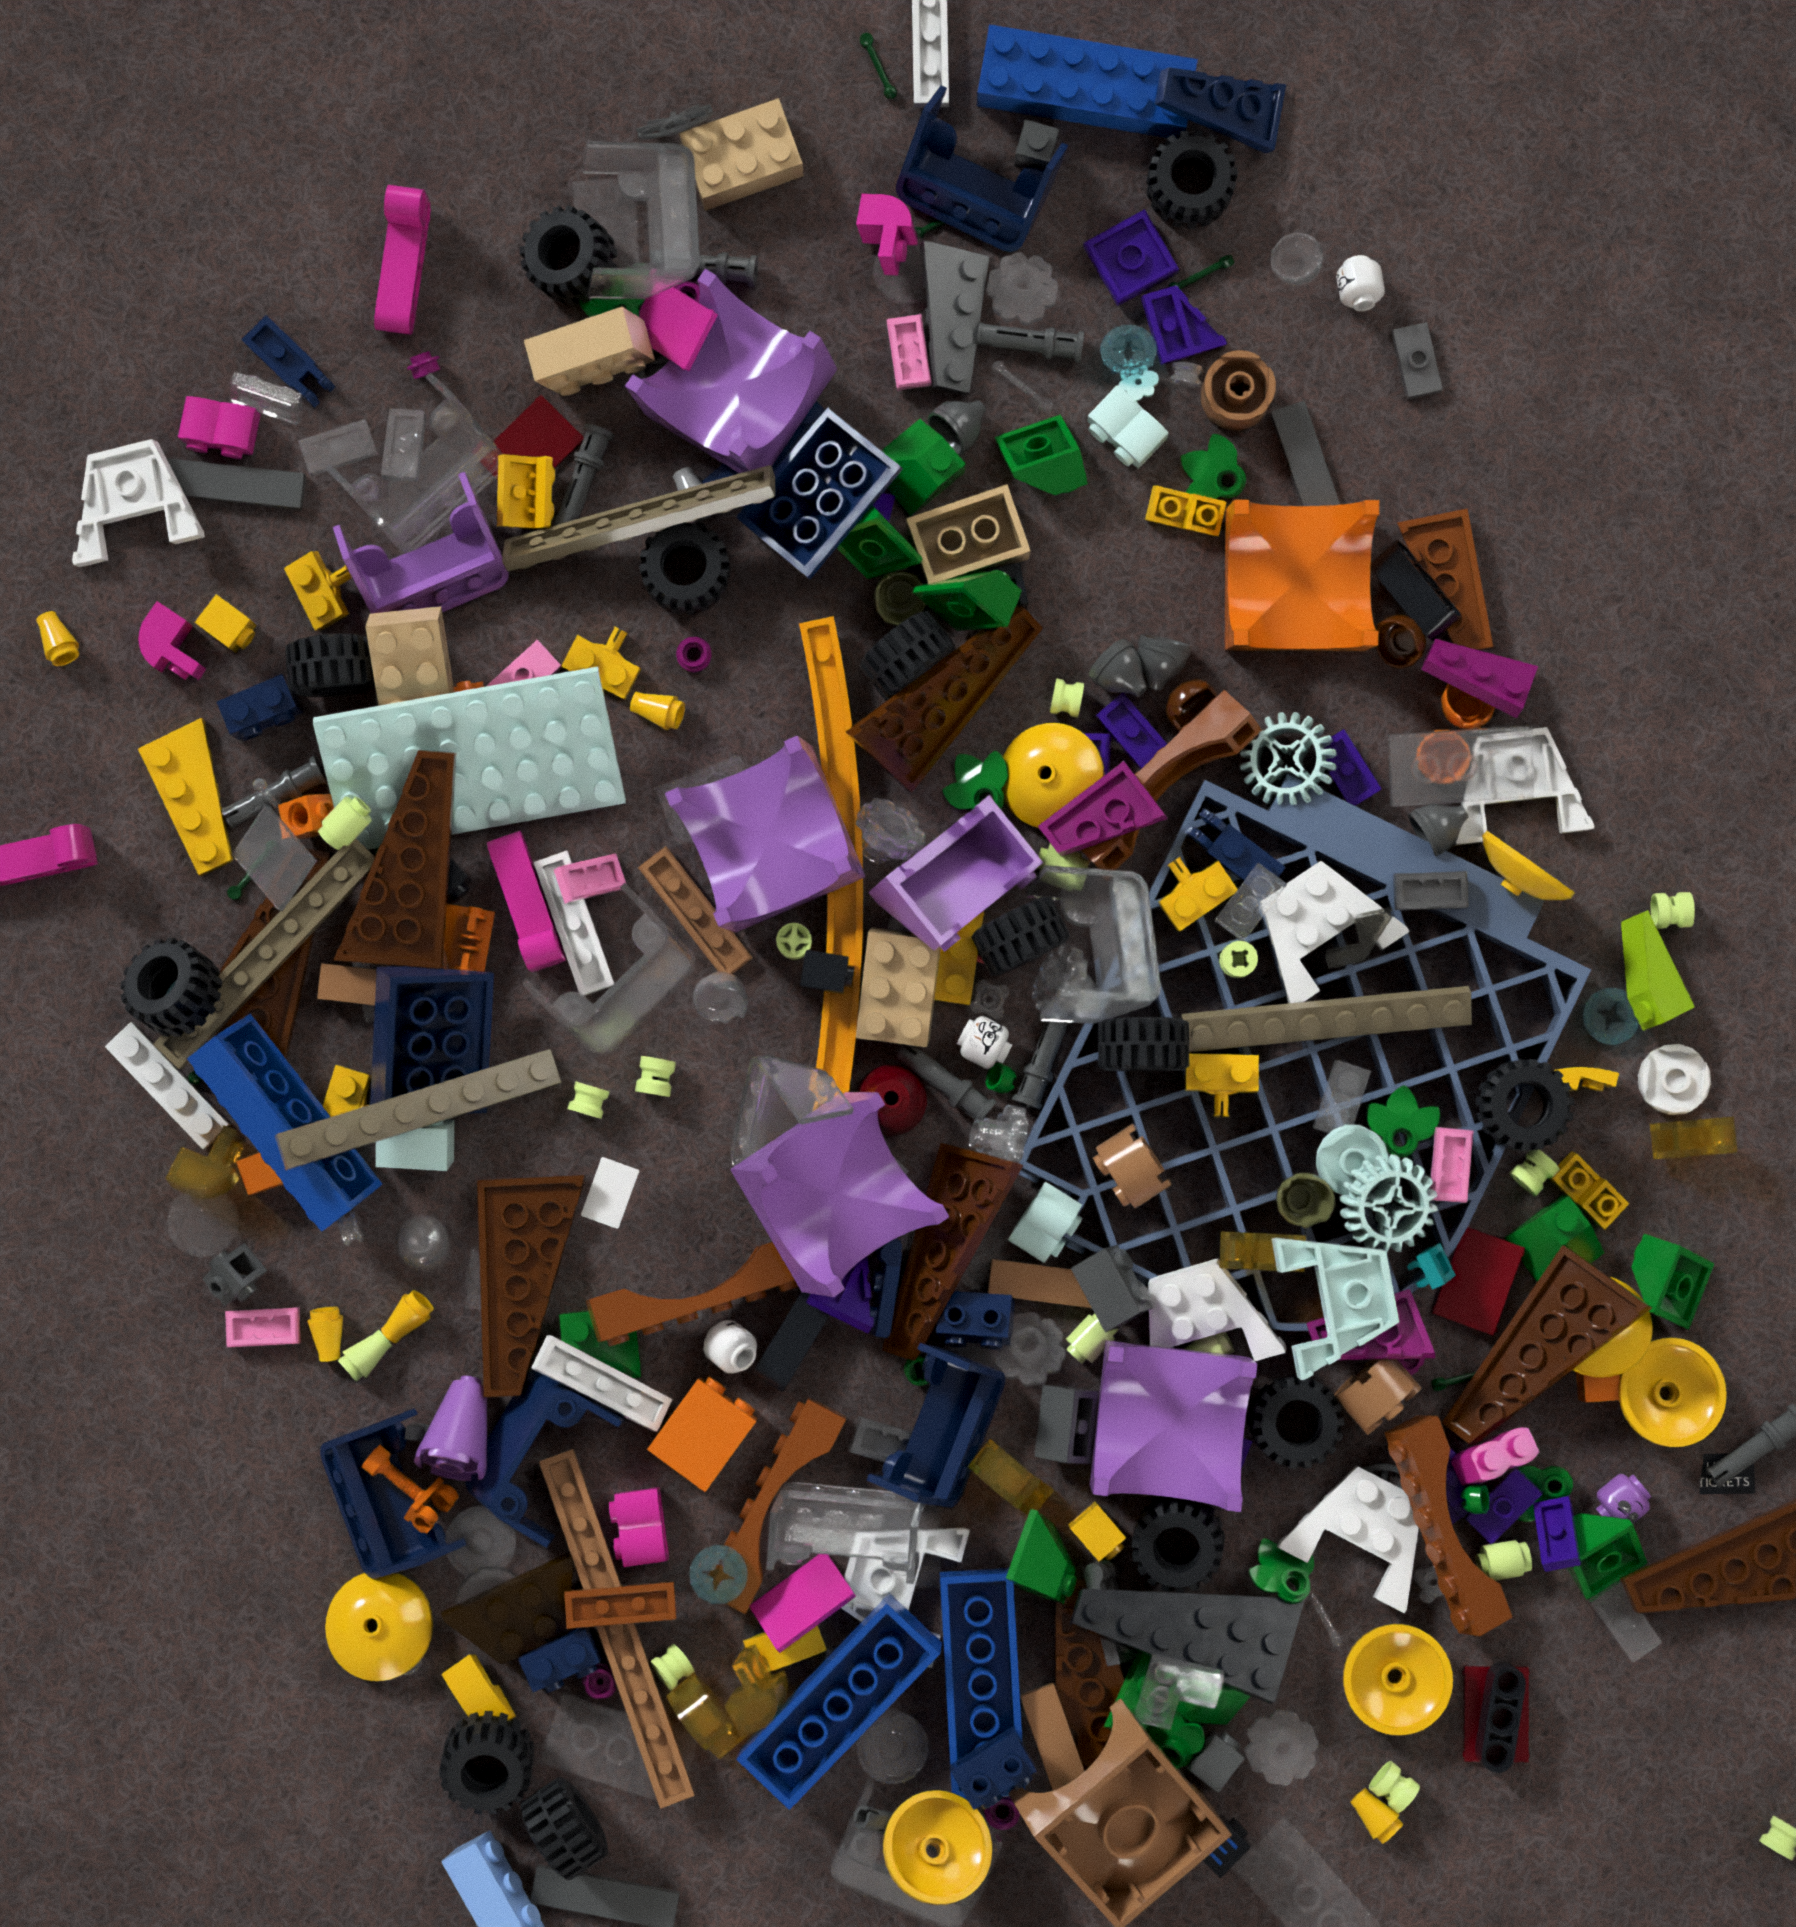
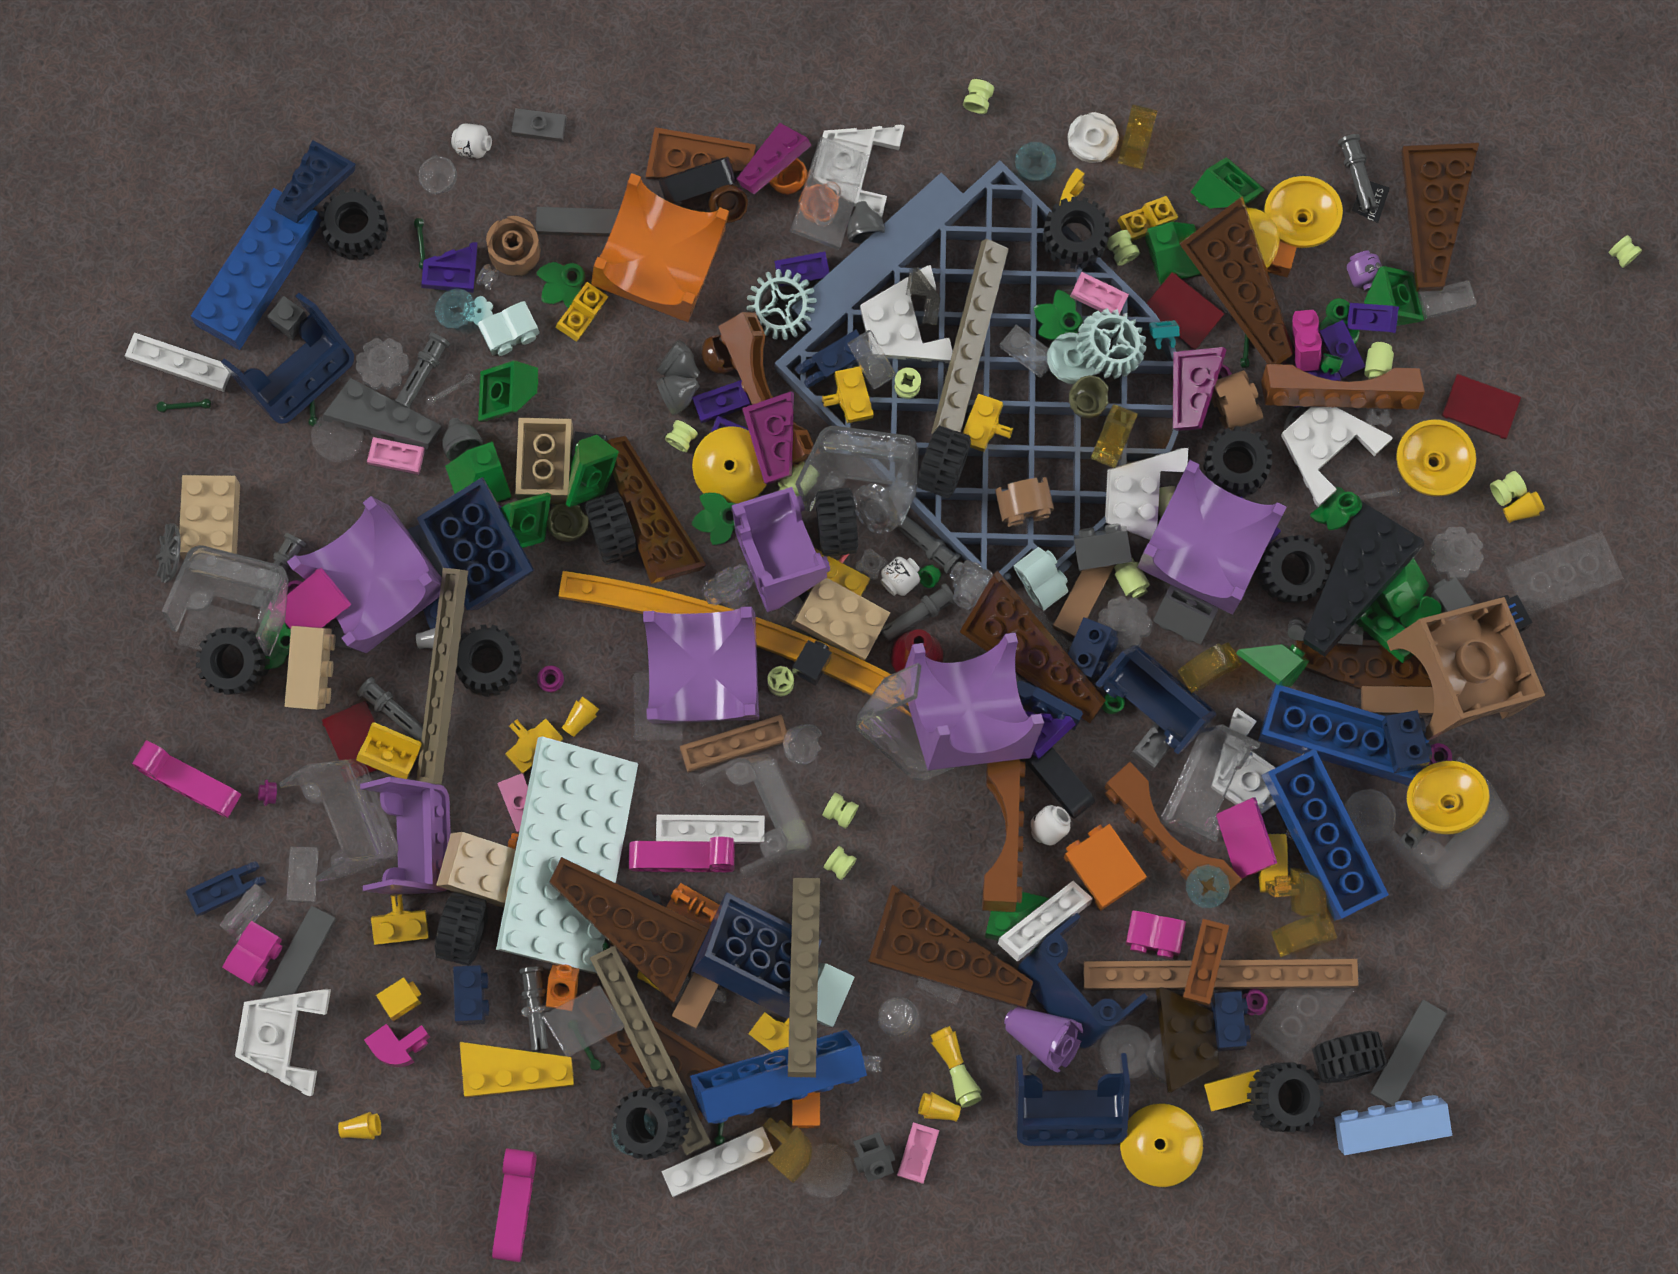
camera: 70 degrees left, 10 degrees down
(345, 822) = (579, 956): yellowish green brick -> none
(403, 445) = (320, 826): clear plate -> none
(421, 1516) = (1046, 1101): orange bar -> none
(589, 878) = (683, 803): bright pink plate -> none
(610, 1192) = (910, 874): white sticker -> none
(672, 1666) = (1261, 945): yellowish green wheel -> none
(888, 223) = (300, 433): dark pink brick -> none
(1098, 1532) = (1267, 620): yellow brick -> none
(1131, 257) = (390, 284): dark purple plate -> none
(1175, 1681) = (1387, 602): clear plate -> none
(1353, 1295) = (1165, 386): light aqua wing -> none
(1430, 890) = (907, 241): flat silver plate -> none
(1506, 1733) = (1497, 400): black beam -> none
(1521, 873) = (917, 177): yellow dish -> none
(1650, 974) = (1016, 124): lime slope -> none

